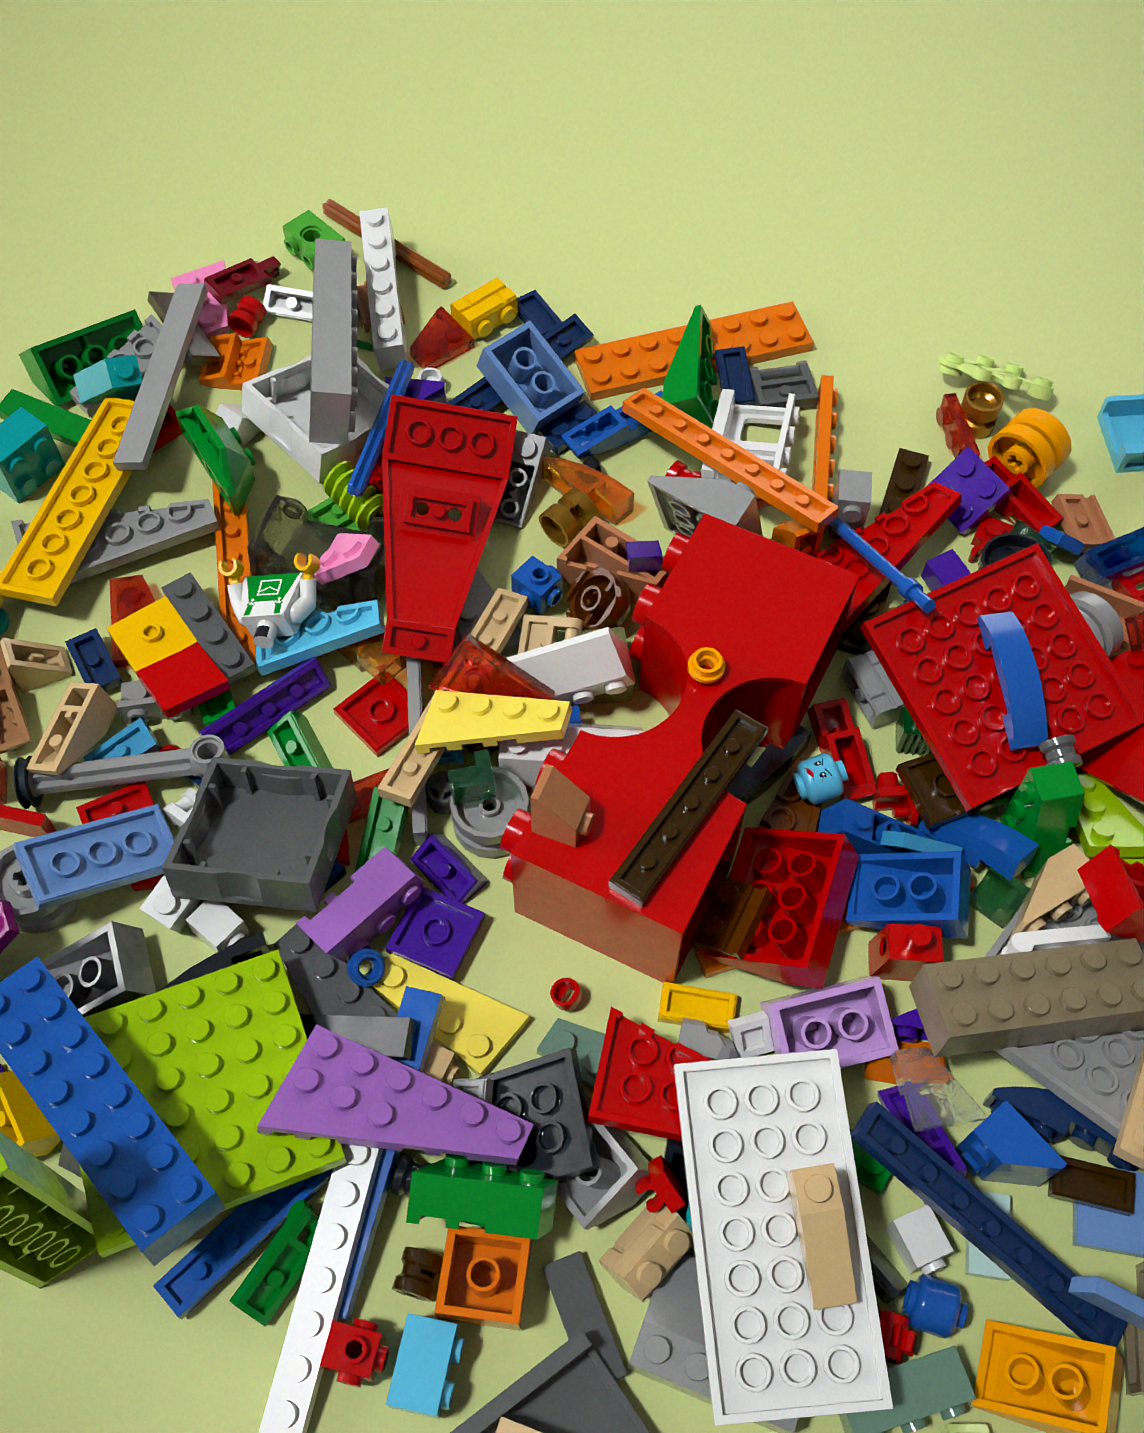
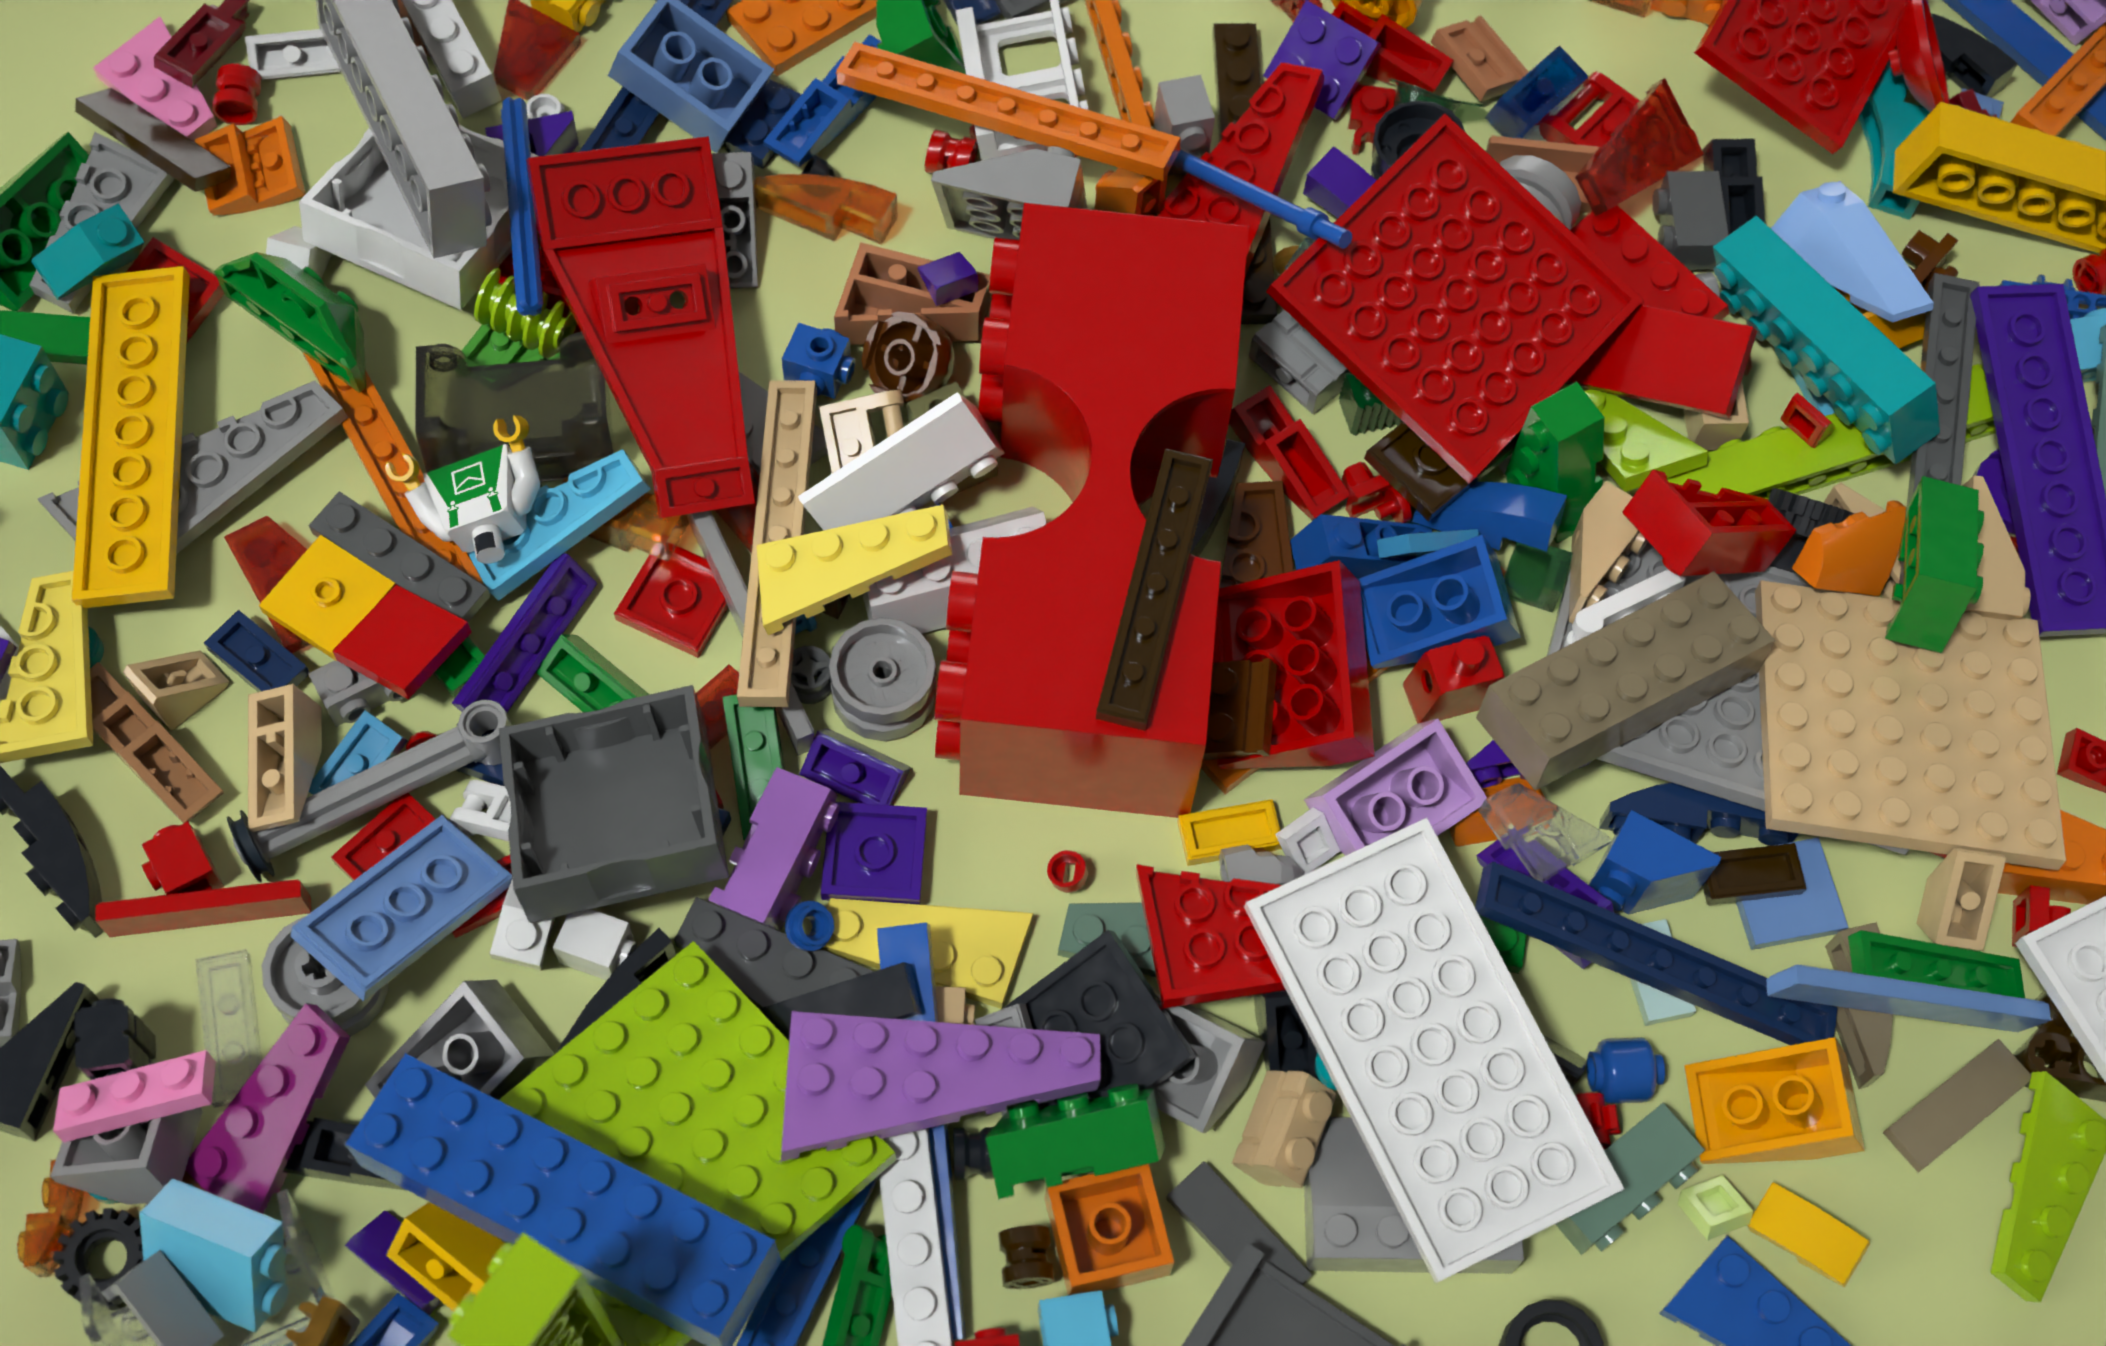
camera: 25 degrees left, 5 degrees up
(160, 378) = (166, 223): light grey tile -> none
(345, 556) = (555, 400): bright pink wing -> none
(473, 782) = (855, 646): clear green panel -> none
(482, 670) = (814, 500): clear red wing -> none
(560, 808) = (1007, 644): nougat slope -> none
(568, 517) = (820, 253): pearl gold wheel -> none
(664, 1184) = (1278, 1048): red tile -> none
(709, 657) = (1107, 393): light orange plate -> none
(820, 778) = (1277, 500): medium azure head -> none
(822, 1235) = (1485, 1029): tan slope -> none
(920, 1241) = (1584, 1005): white brick -> none
(1018, 679) = (1480, 296): blue slope -> none
(1060, 750) = (1557, 373): dark grey wheel -> none
(1061, 539) = (1461, 91): blue tile -> none

